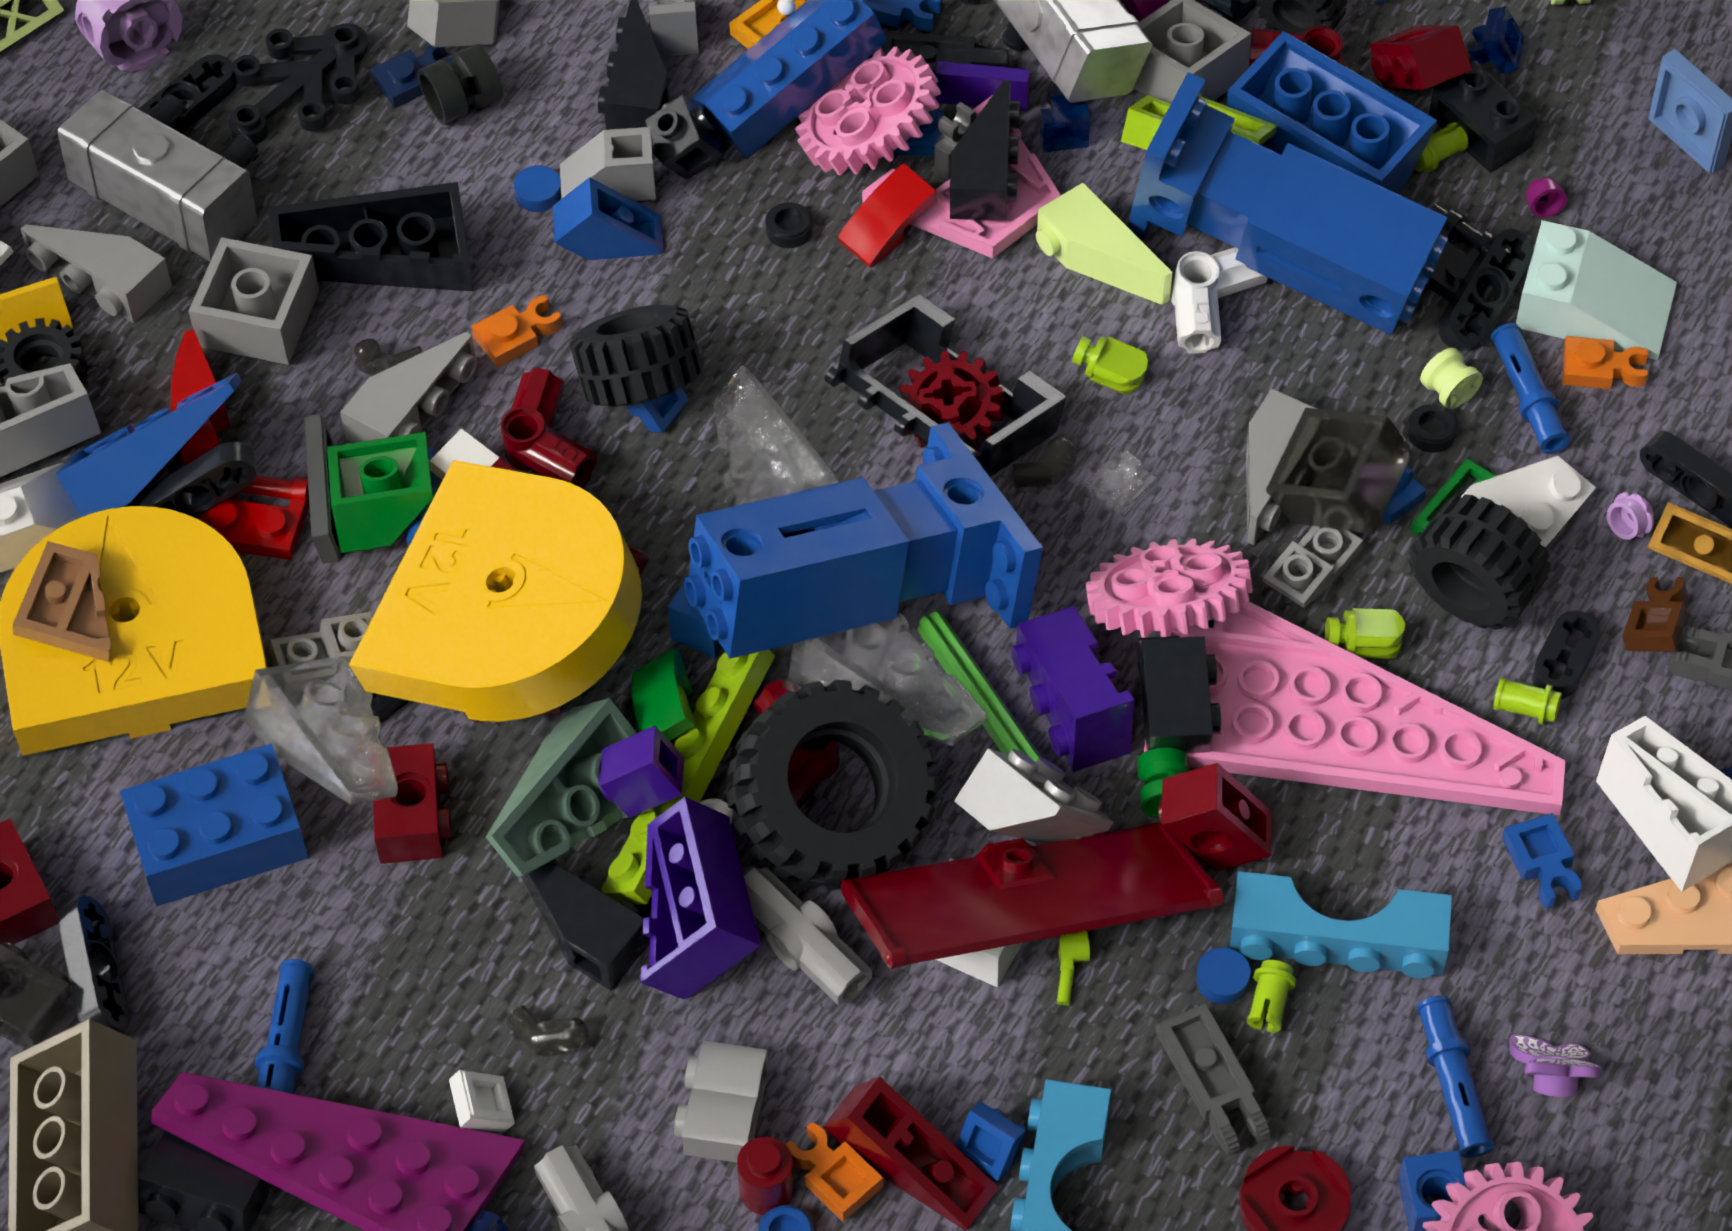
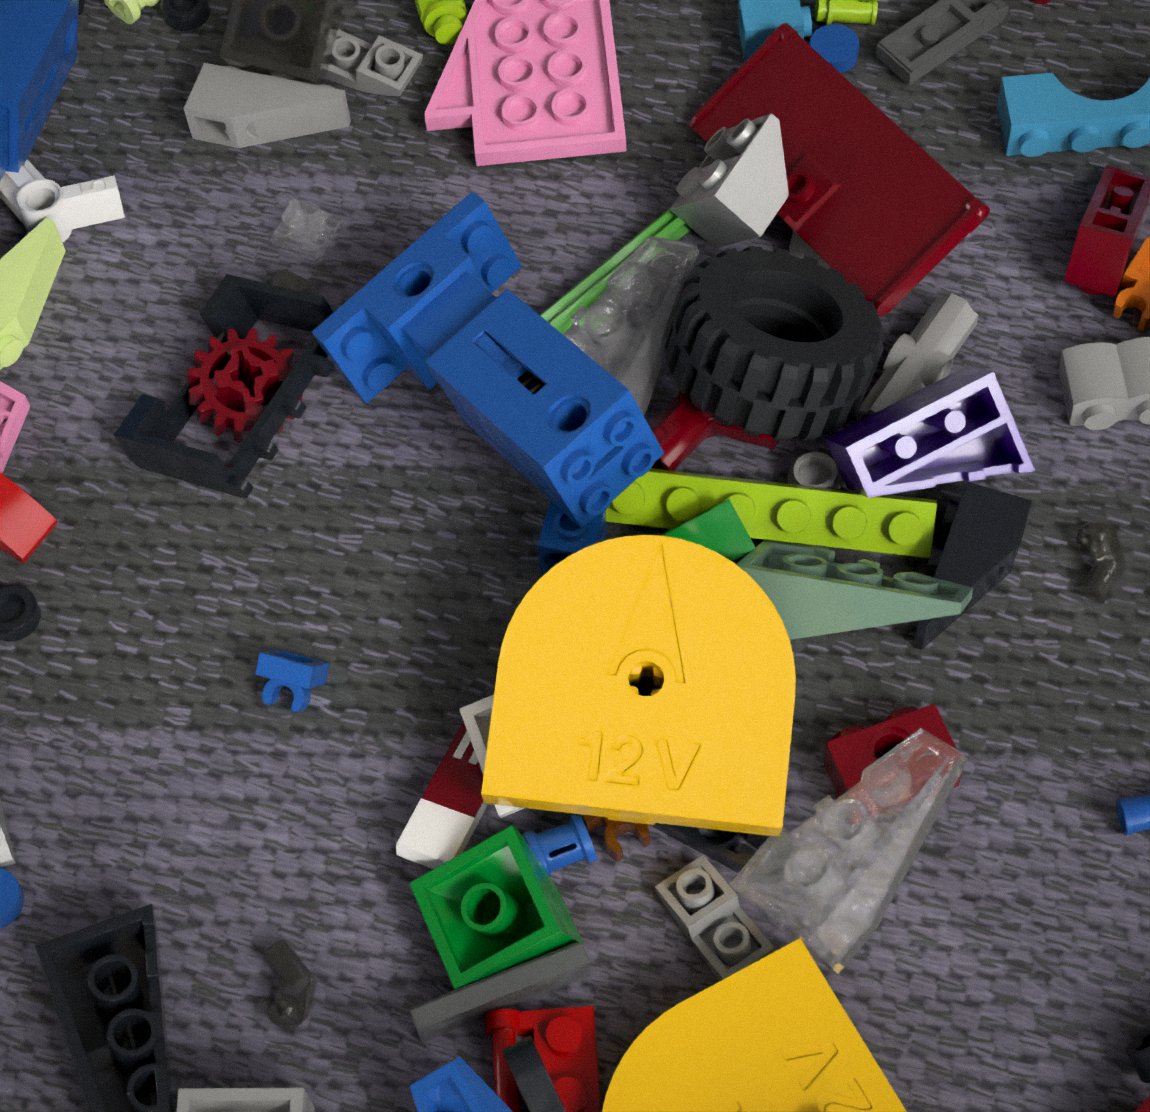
camera: 100 degrees left, 5 degrees up
(214, 824) = (991, 952): blue brick -> none
(409, 393) = (361, 945): light grey slope -> none
(514, 333) = (218, 864): orange plate -> none
(529, 434) = (391, 761): dark red piece -> none
(605, 224) = (49, 796): blue slope -> none
(636, 355) = (224, 683): black tyre -> none
(641, 772) = (813, 516): dark purple brick -> none
(763, 444) = (372, 528): clear wedge -> none
(990, 1140) = (1072, 170): blue tile -> none
(1074, 689) = (579, 198): dark purple wedge -> none
(1112, 363) = (159, 265): lime arm -> none
(1154, 767) = (654, 119): green wheel -> none
(1169, 587) = (434, 135): bright pink gear -> none
(1177, 694) = (571, 106): black hinge -> none
(1216, 817) = (699, 52): dark red brick -> none

